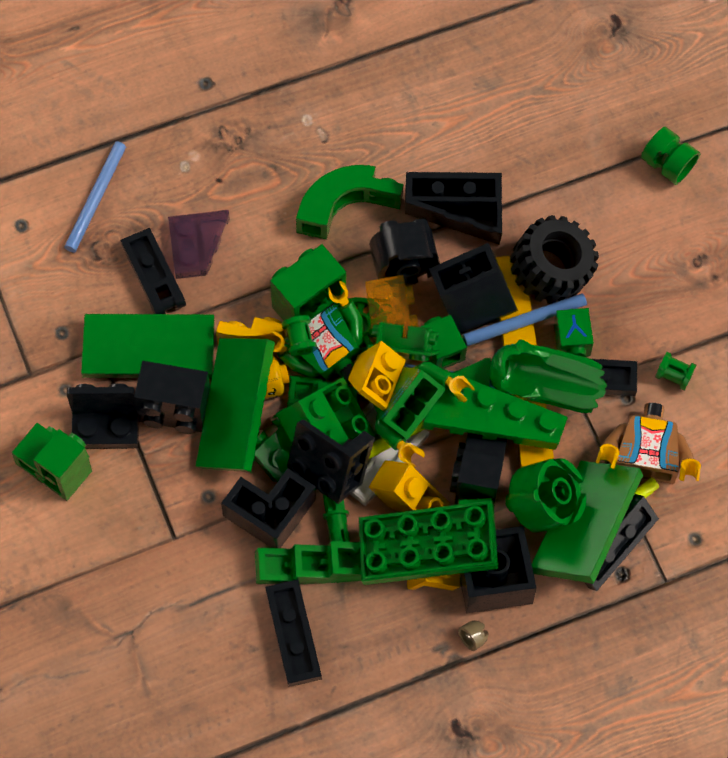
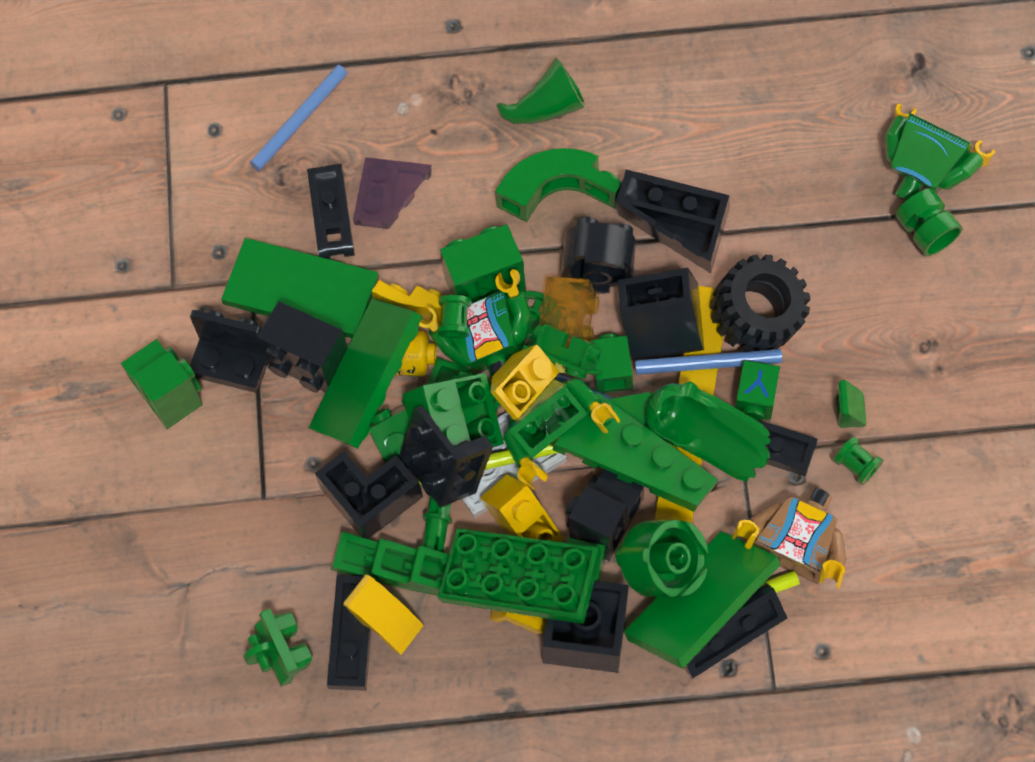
camera: 25 degrees right, 0 degrees up
(230, 666) = (271, 649): none -> green hips
(315, 126) = (549, 99): none -> green hat
(318, 608) = (383, 614): none -> yellow slope
(472, 635) = (541, 688): dark tan hinge -> none
(652, 99) = (929, 155): none -> green torso
(652, 327) = (850, 405): none -> green slope

